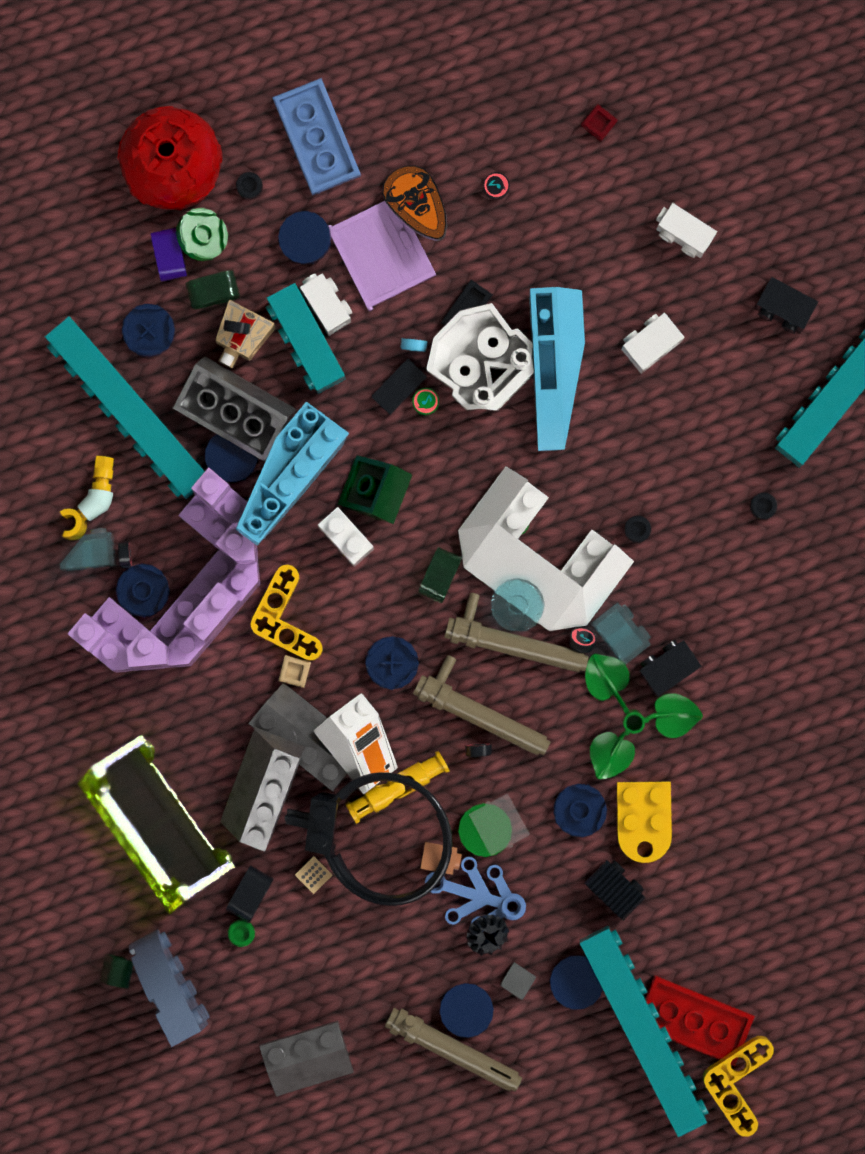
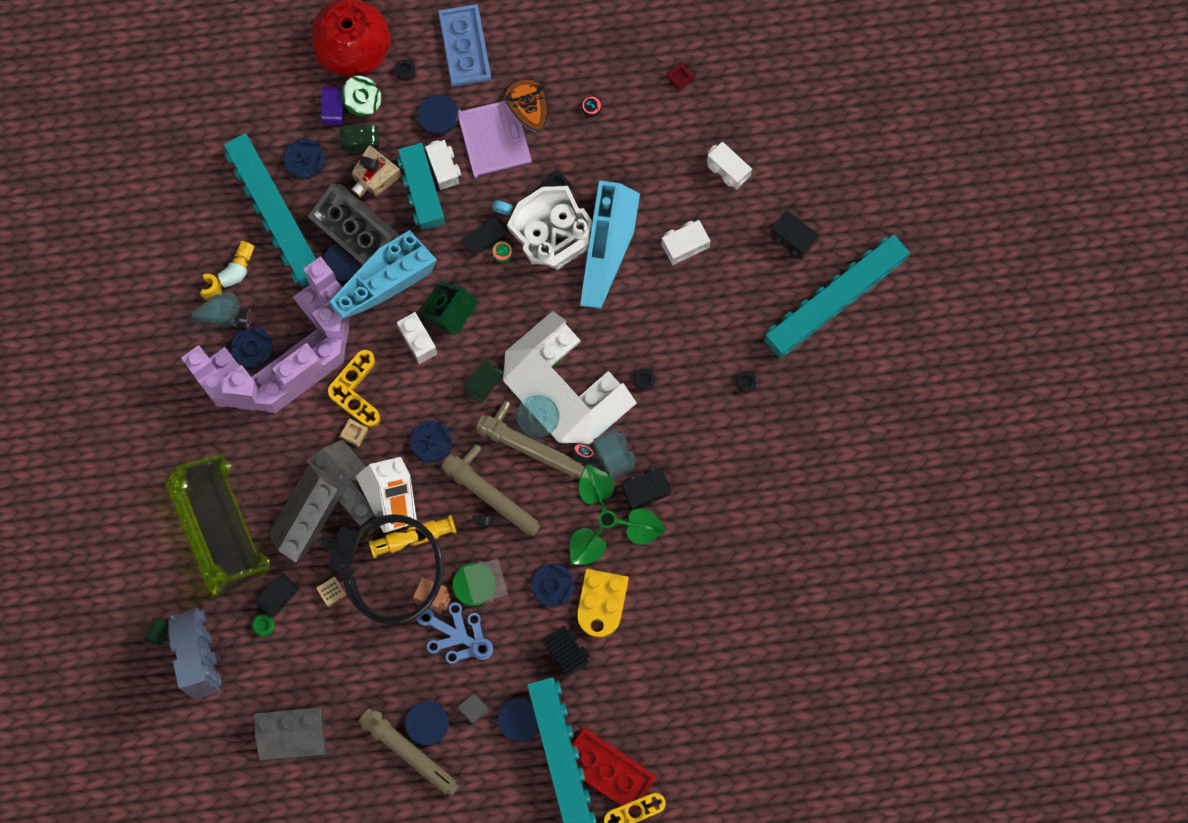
camera: 15 degrees right, 10 degrees down
(491, 924) = (460, 657): black gear -> none

